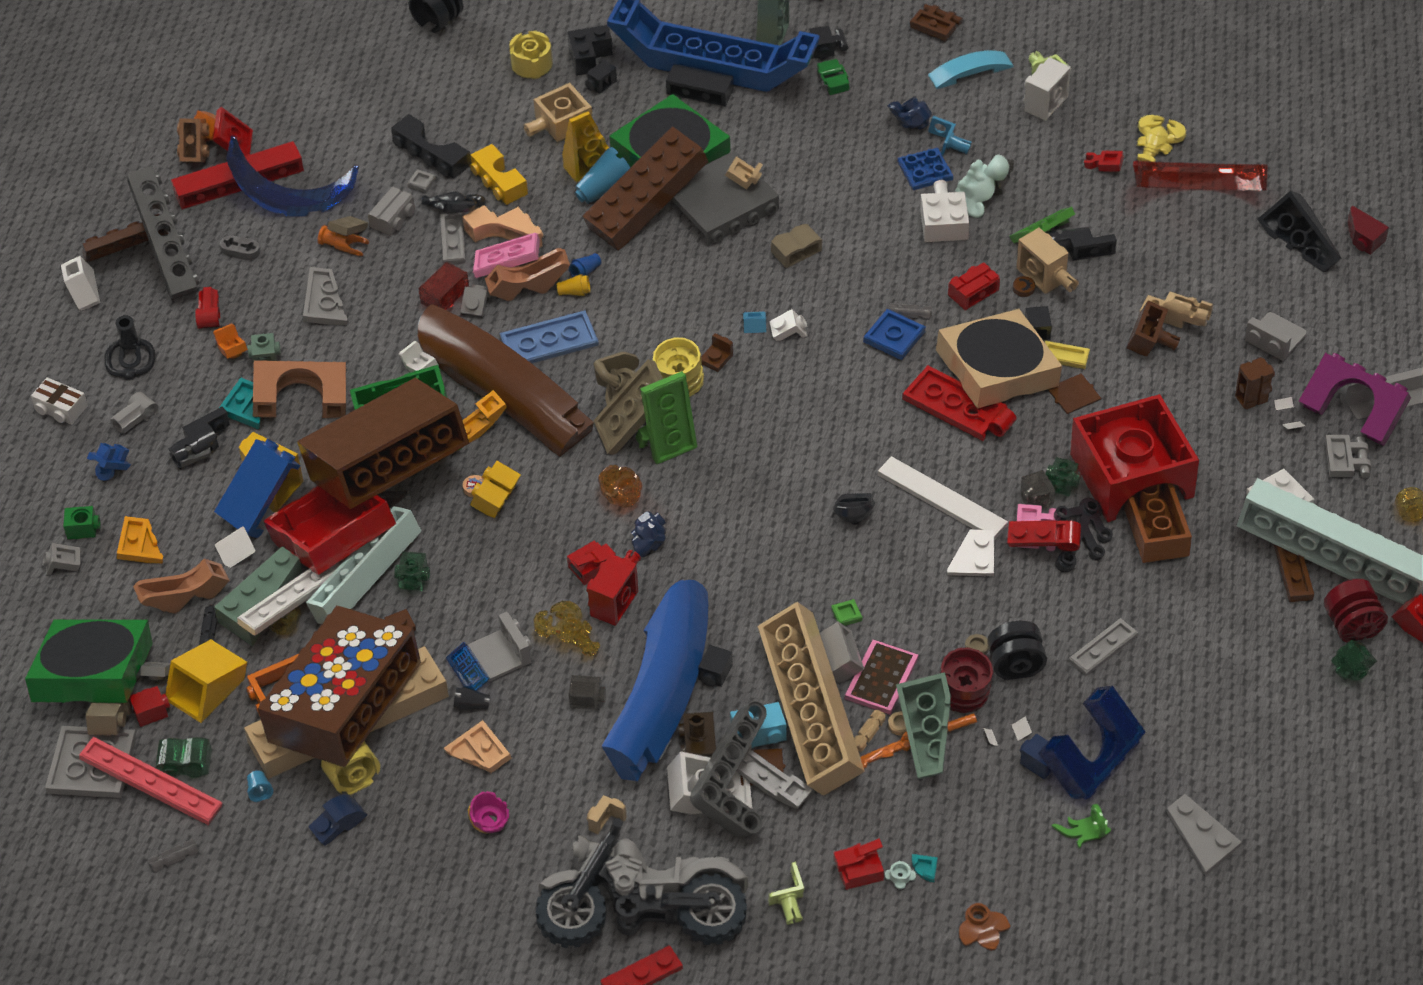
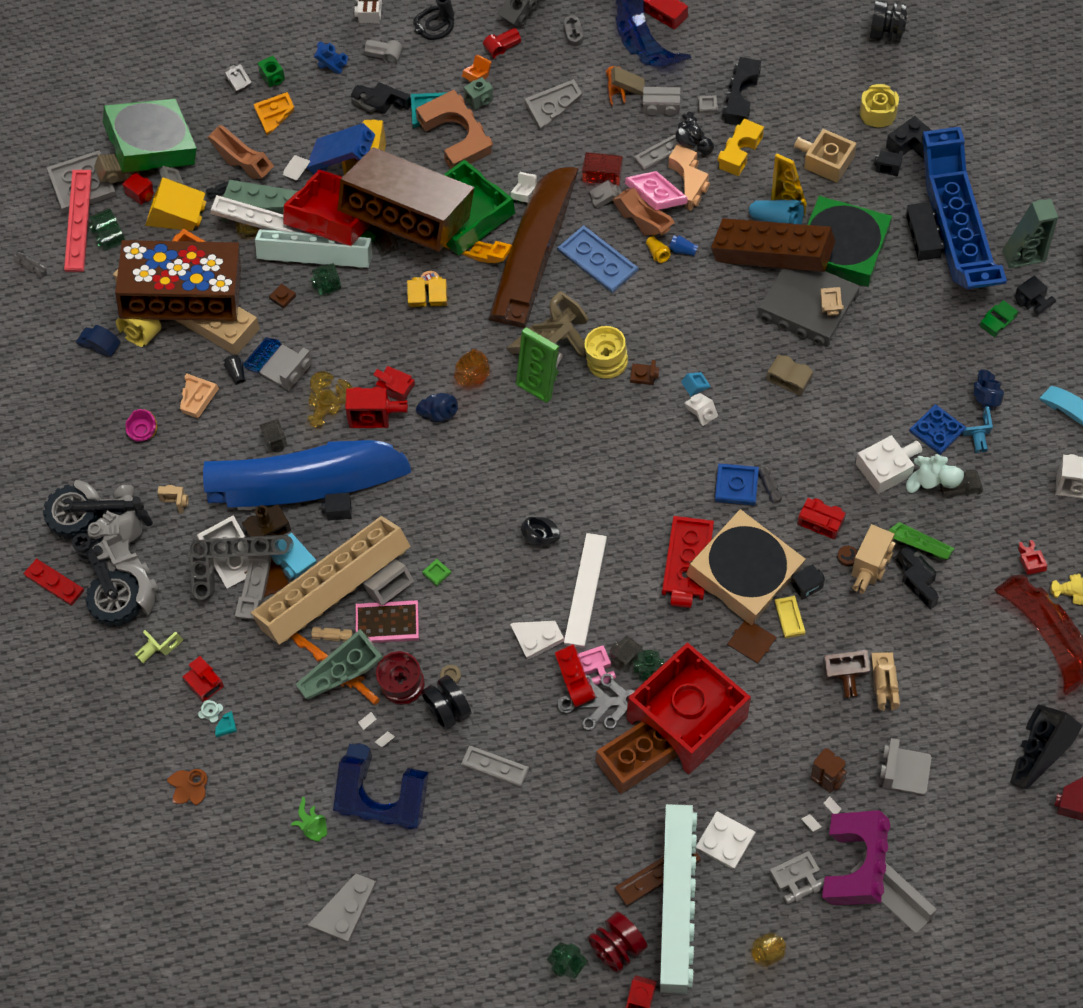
camera: 65 degrees right, 10 degrees up
(258, 786) = (103, 282): dark azure piece -> none

